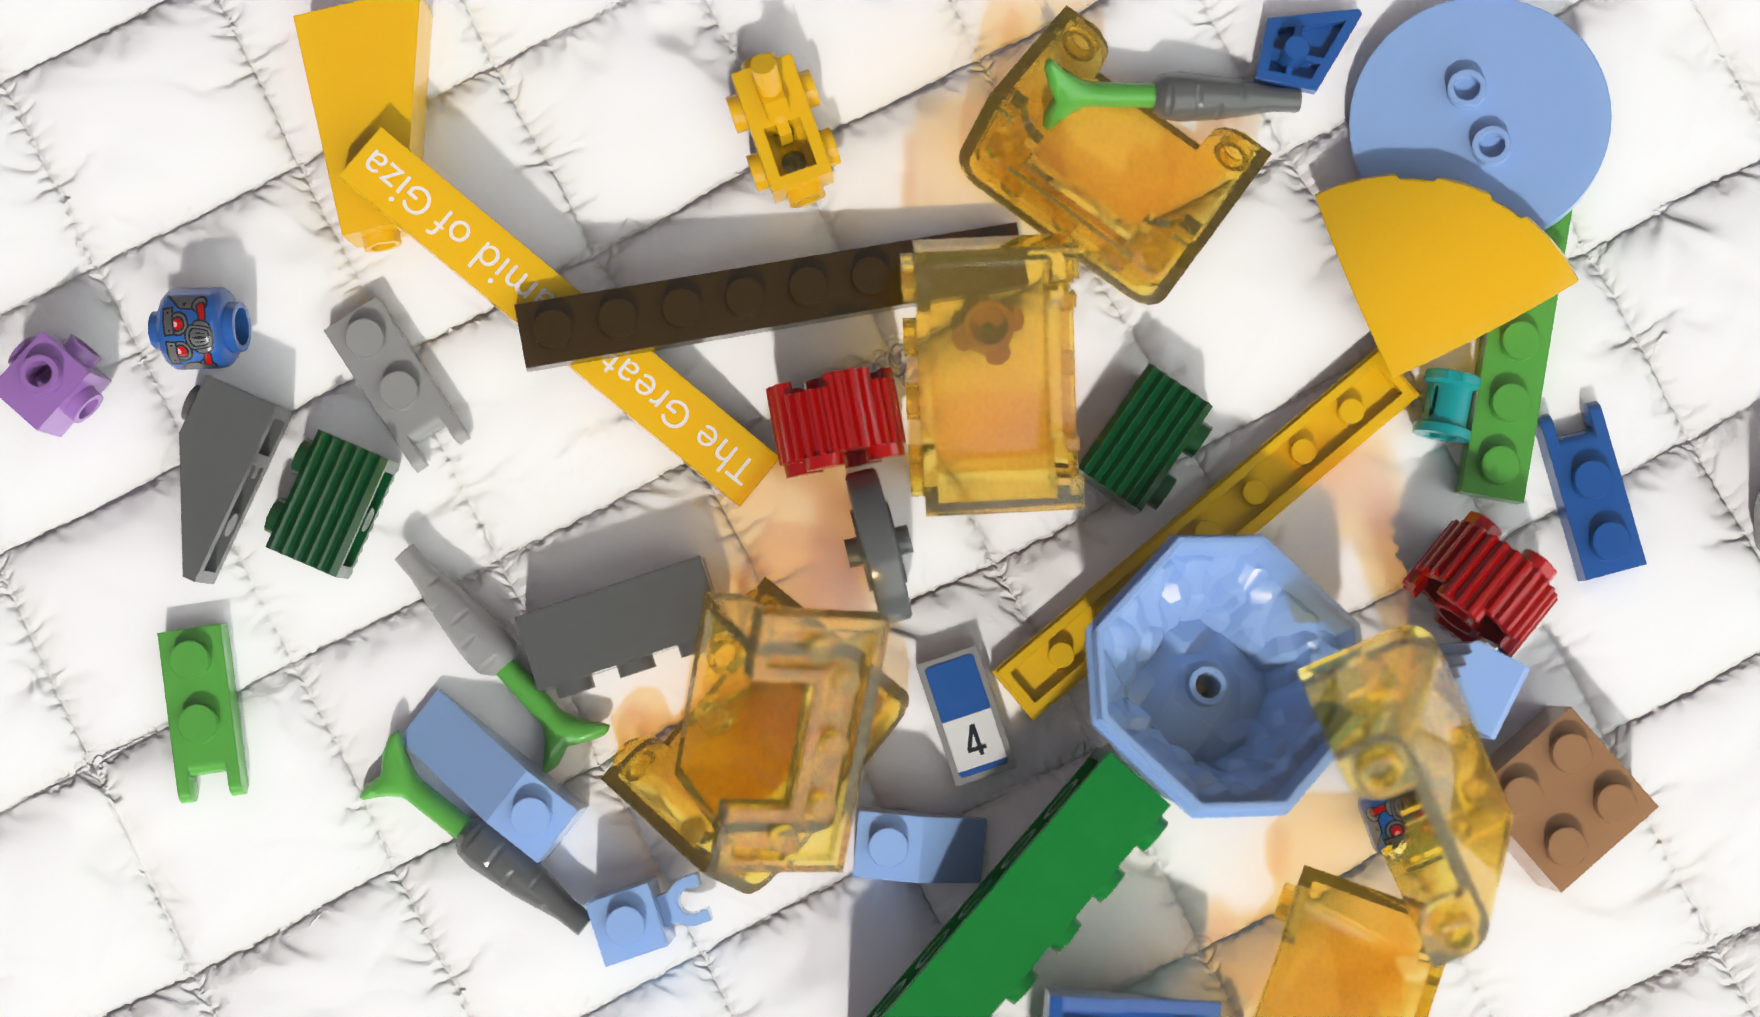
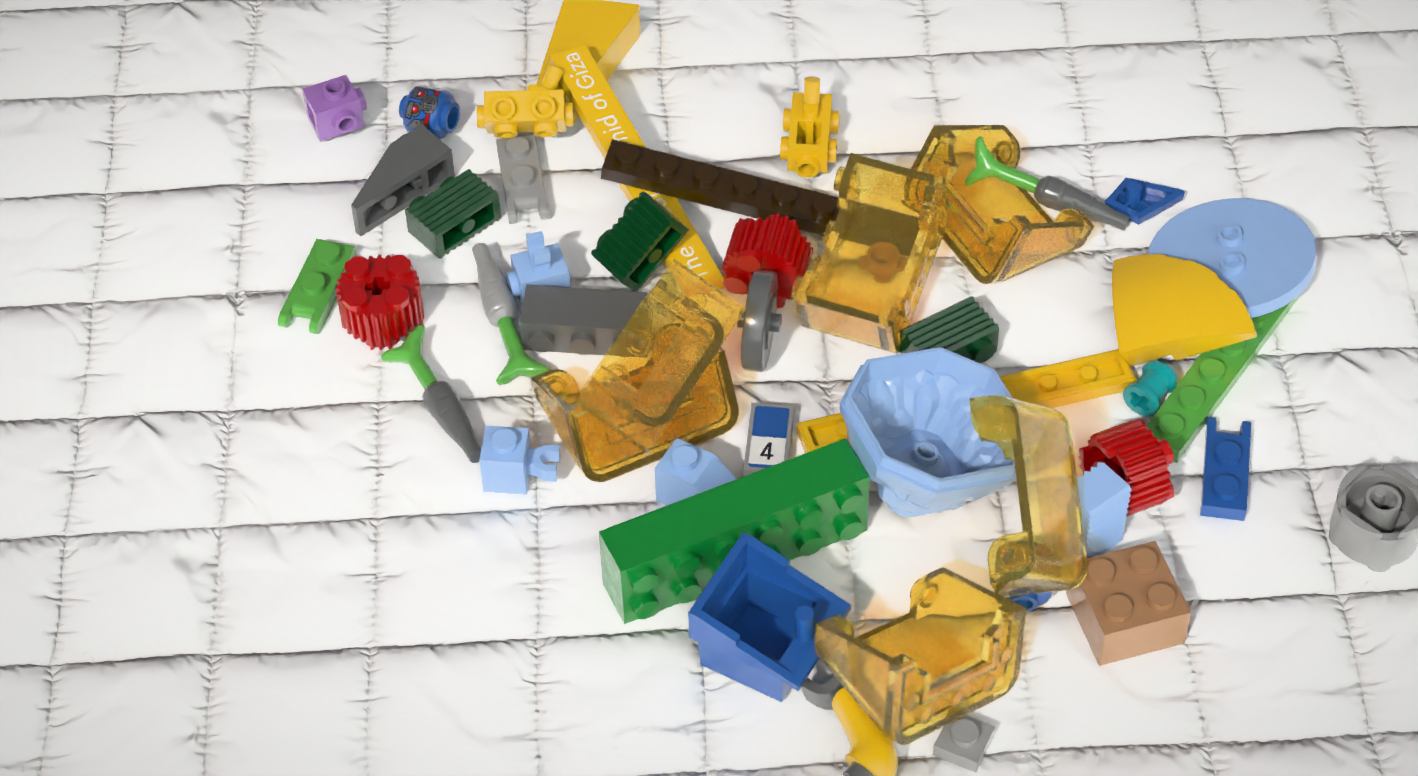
camera: 25 degrees right, 35 degrees down
(277, 724) = (379, 299): none -> red brick
(364, 281) = (527, 111): none -> yellow brick
(493, 777) = (471, 373): light blue slope -> none
(516, 572) = (537, 266): none -> light blue brick
(637, 462) = (639, 241): none -> dark green brick

